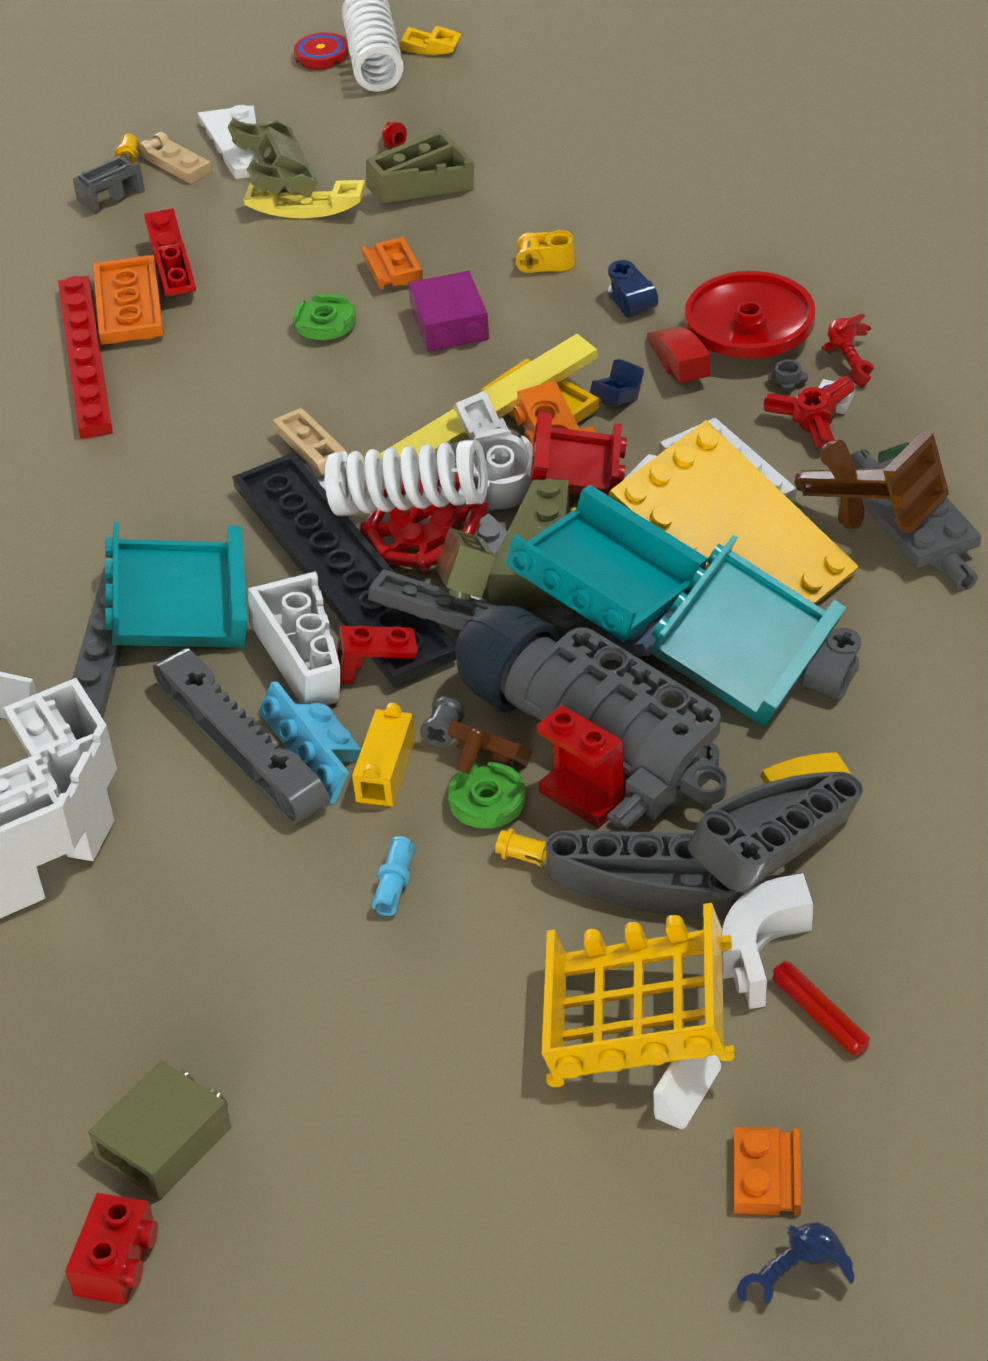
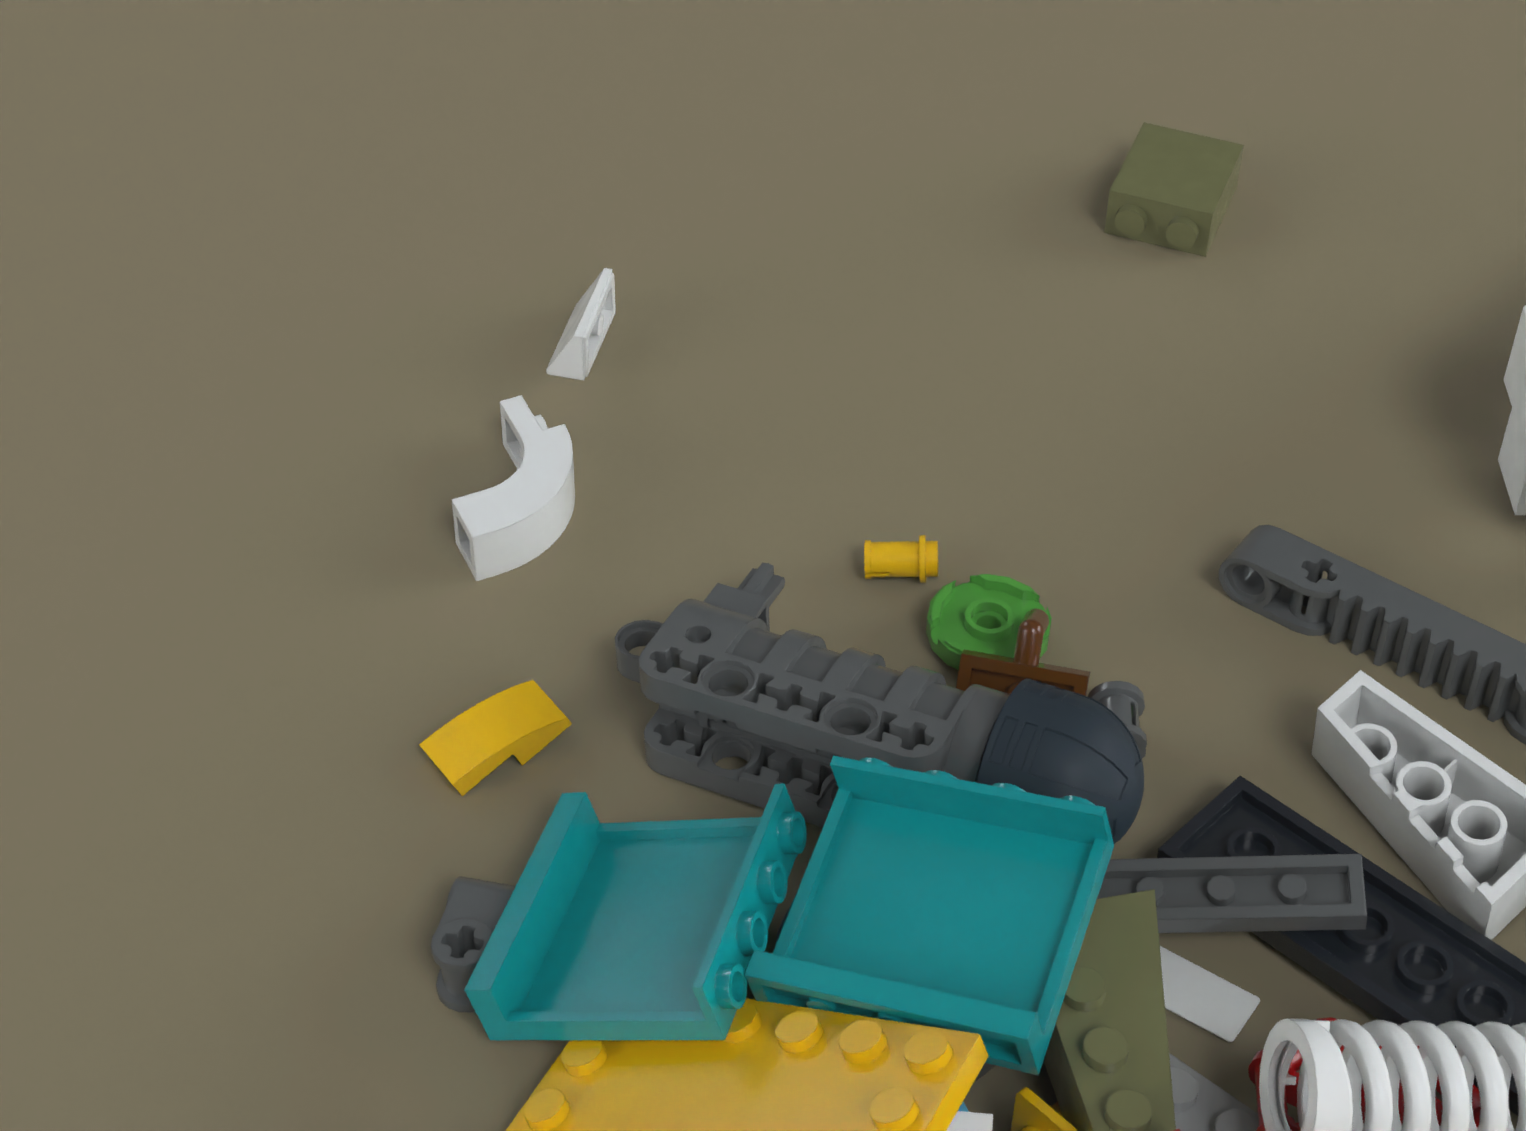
camera: 160 degrees right, 0 degrees up
(111, 1249) = (1148, 89): red brick -> none
(312, 735) = (1289, 662): medium azure bracket -> none
(369, 641) = (1299, 802): red bracket -> none
(384, 756) = (1174, 645): yellow brick -> none
(393, 876) = (1065, 493): medium azure pin -> none
(464, 564) = (1217, 947): olive brick -> none
(586, 766) = (848, 596): red panel -> none
(637, 871) = (676, 544): dark grey beam -> none
(640, 1048) = (675, 289): yellow window -> none
(766, 1171) = (468, 272): orange plate -> none
(771, 825) = (522, 580): dark grey beam -> none
(809, 1243) = (401, 185): dark blue piece -> none
(821, 1008) = (429, 435): red axle -> none

